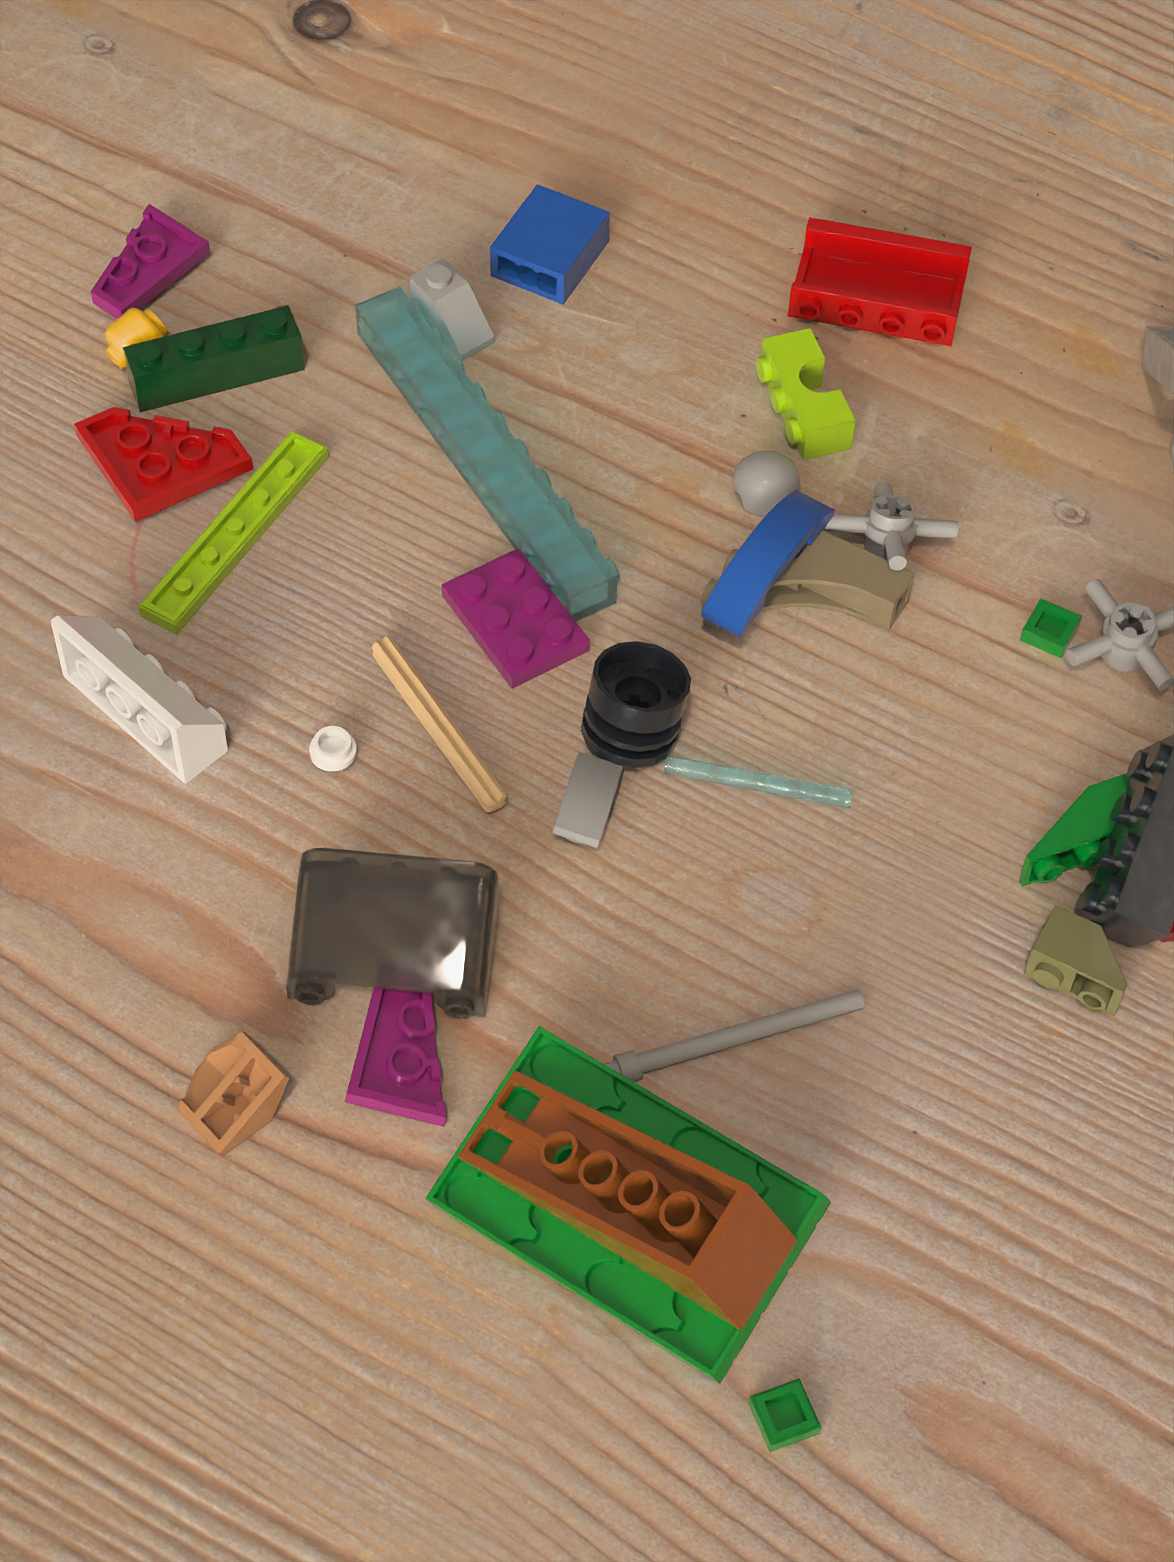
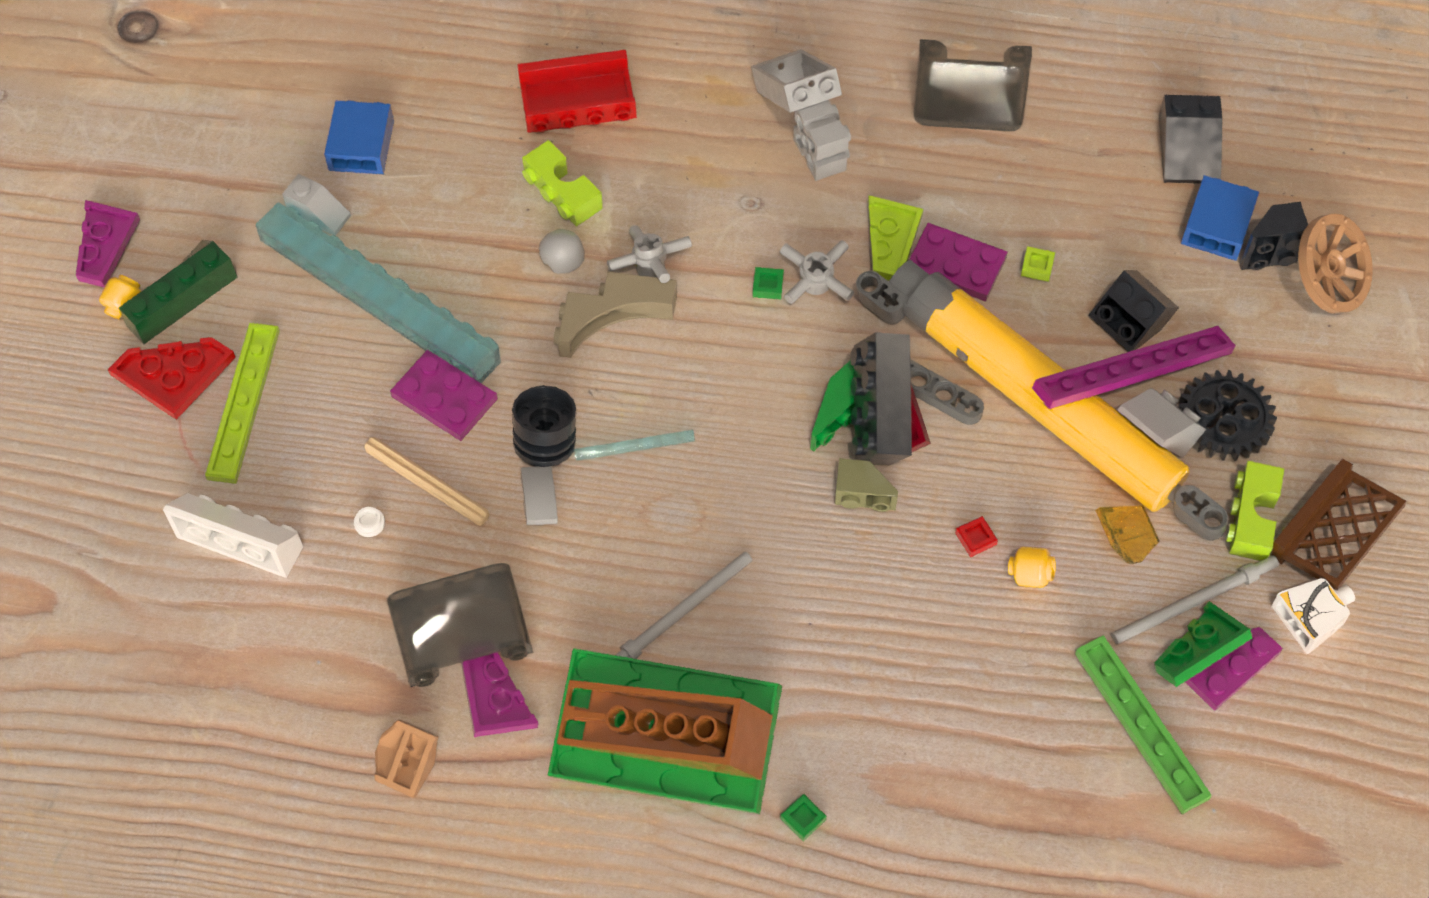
camera: 20 degrees left, 5 degrees up
(763, 559) = (585, 305): blue slope -> none

